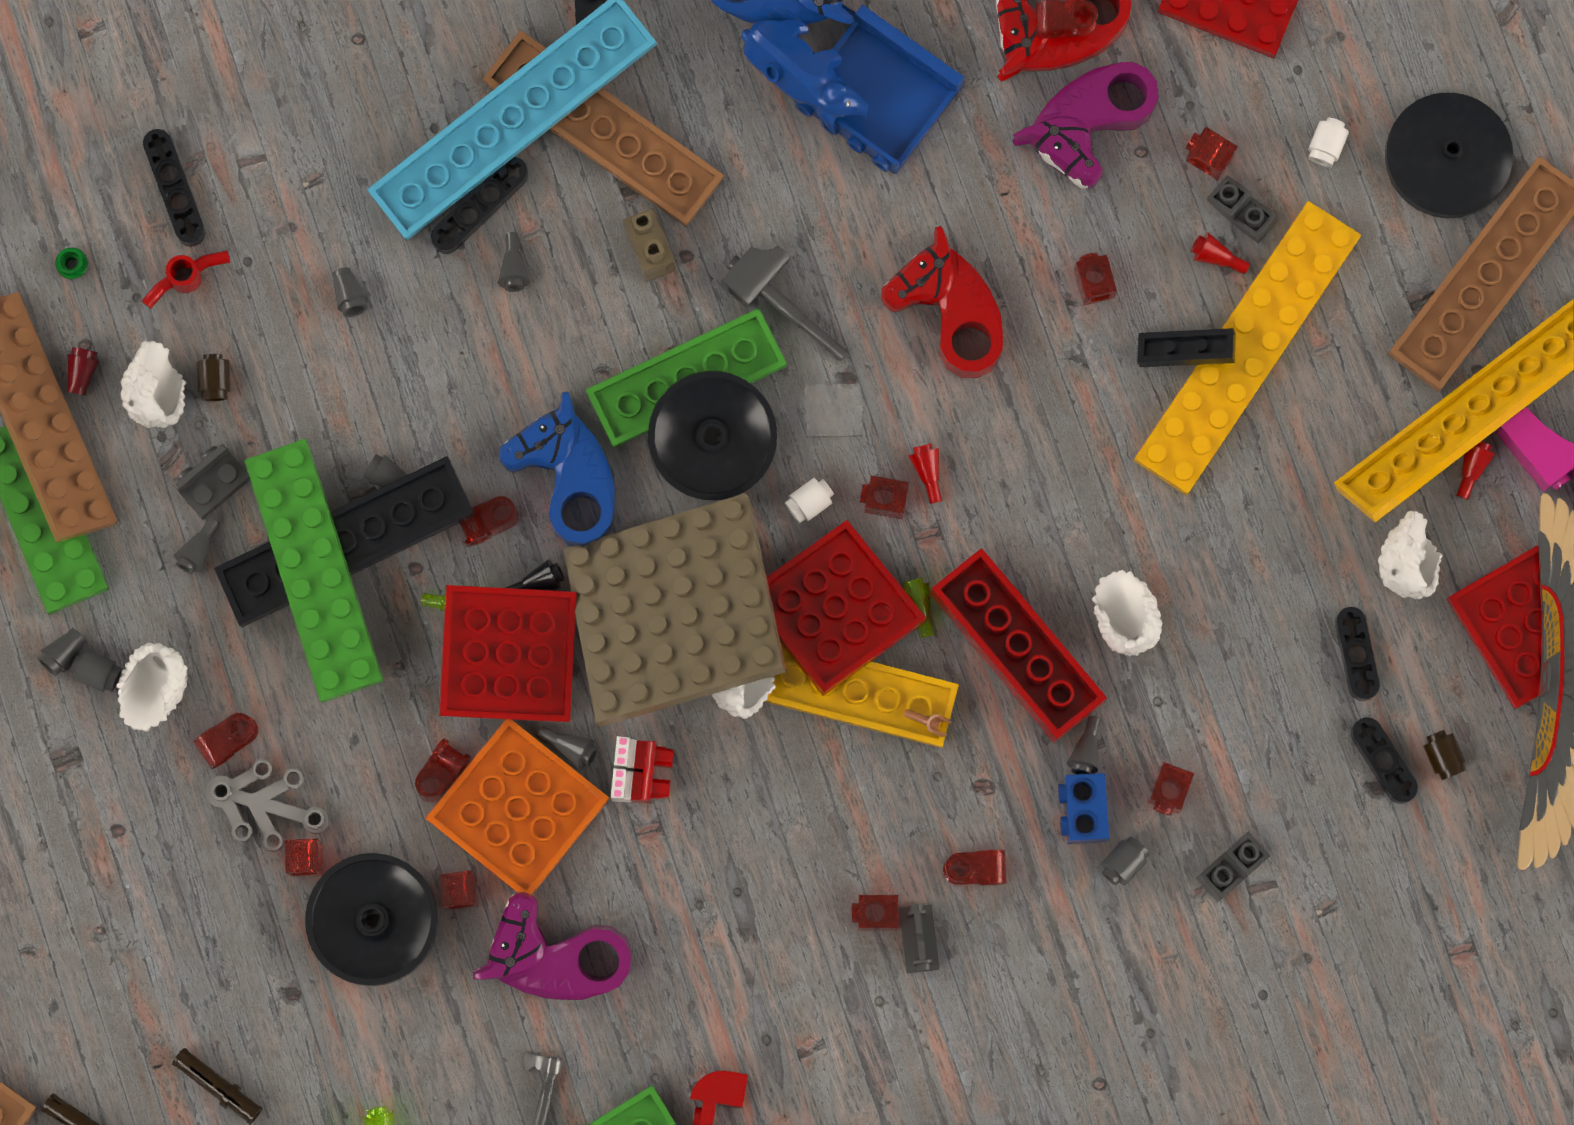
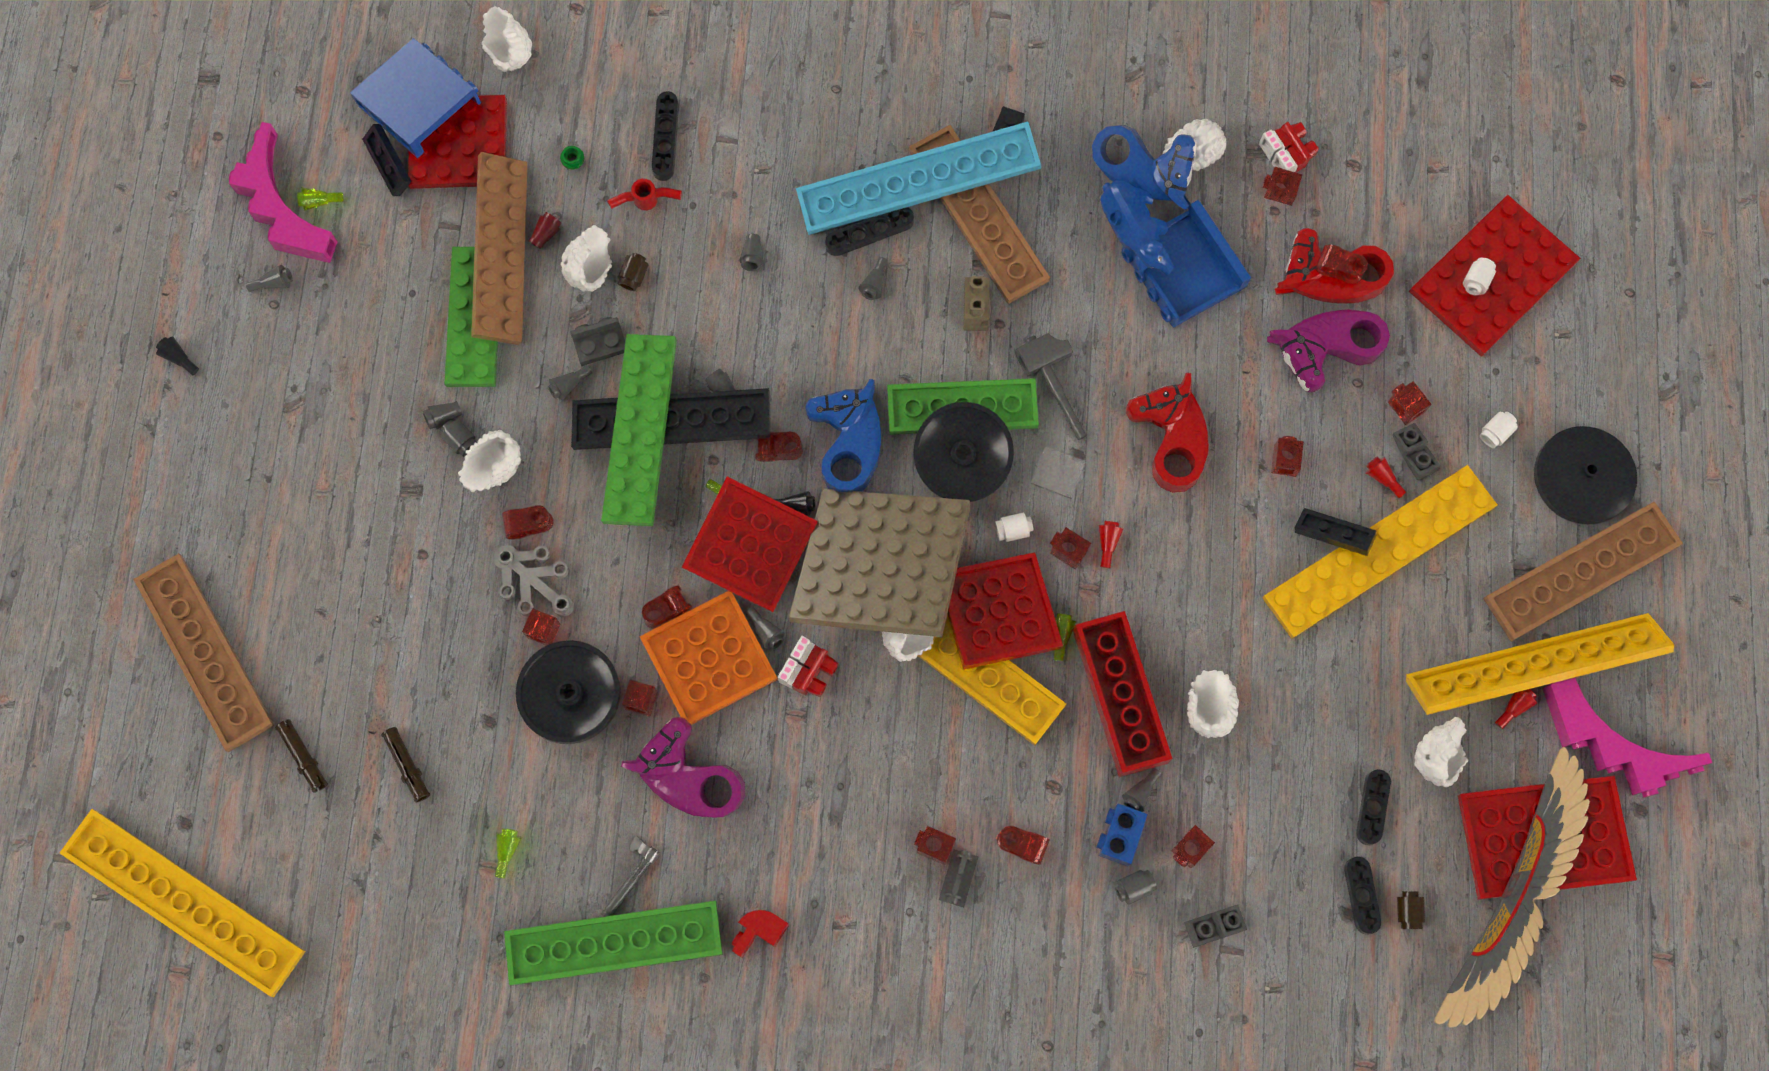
camera: 25 degrees right, 5 degrees down
(931, 722) = (1034, 722): nougat hand -> none

